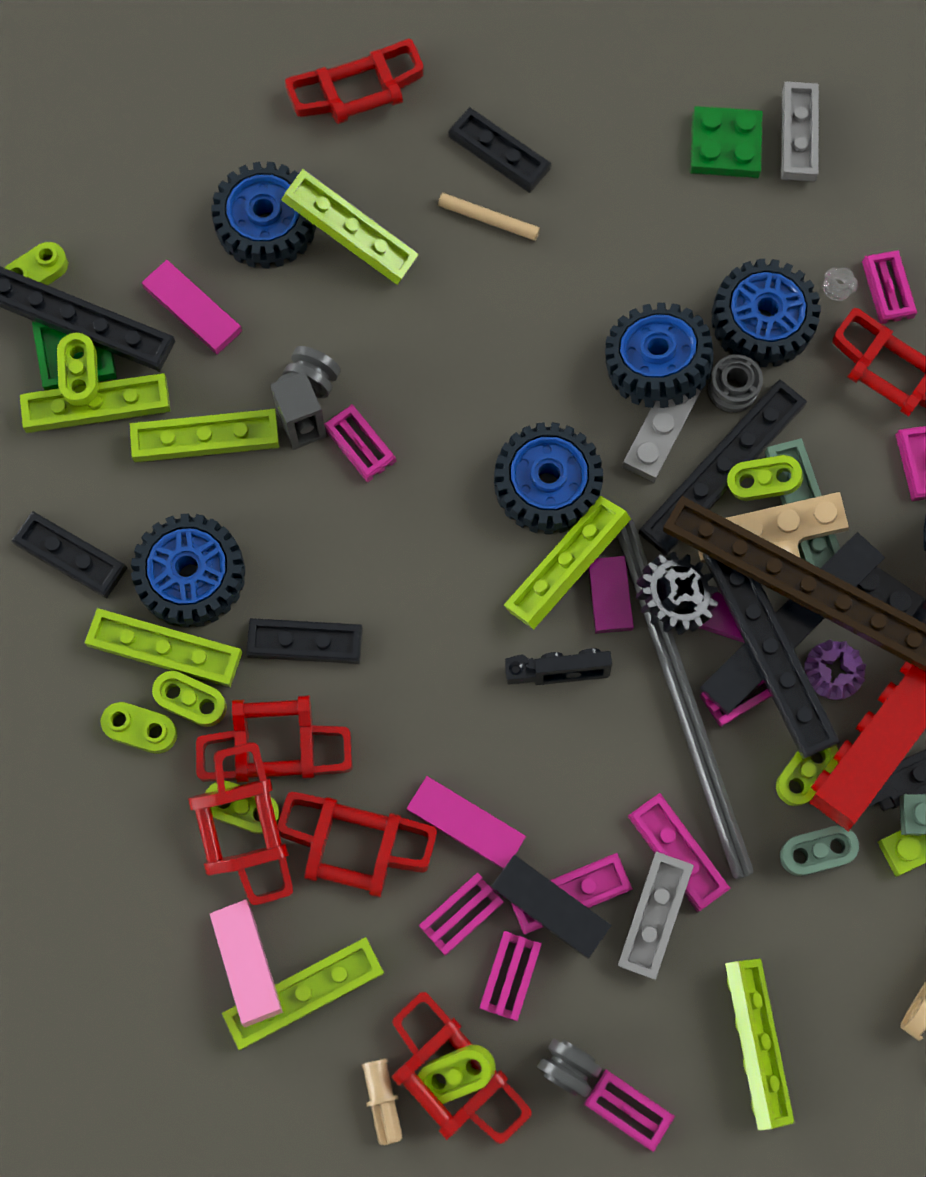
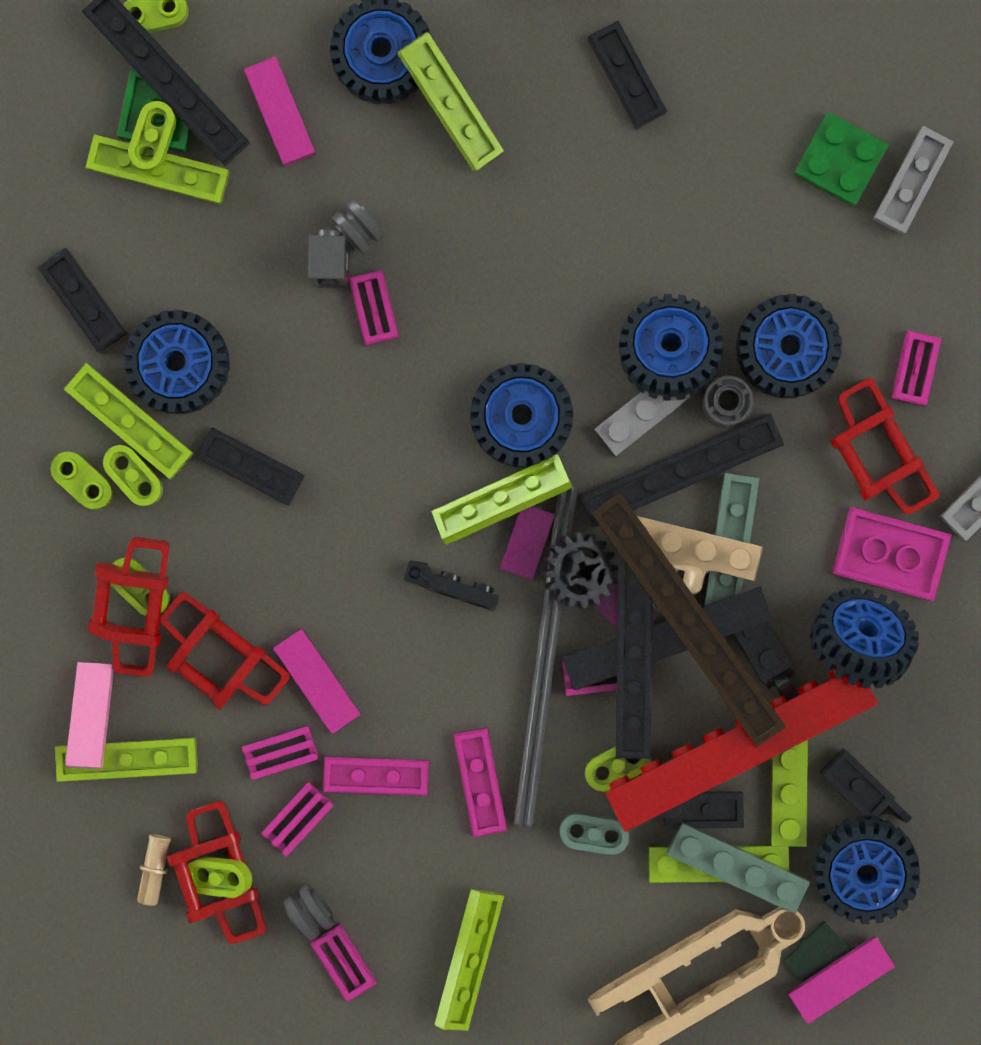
camera: 30 degrees right, 15 degrees up
(204, 435) = (240, 242): lime plate -> none
(304, 767) = (205, 575): red bar -> none
(488, 216) = (586, 139): tan piece -> none
(551, 906) = (353, 781): black tile -> none
(655, 915) = (434, 825): light grey plate -> none
(765, 476) = (707, 503): lime plate -> none
(820, 676) = (669, 691): medium lavender gear -> none
(835, 290) = (865, 352): clear plate -> none

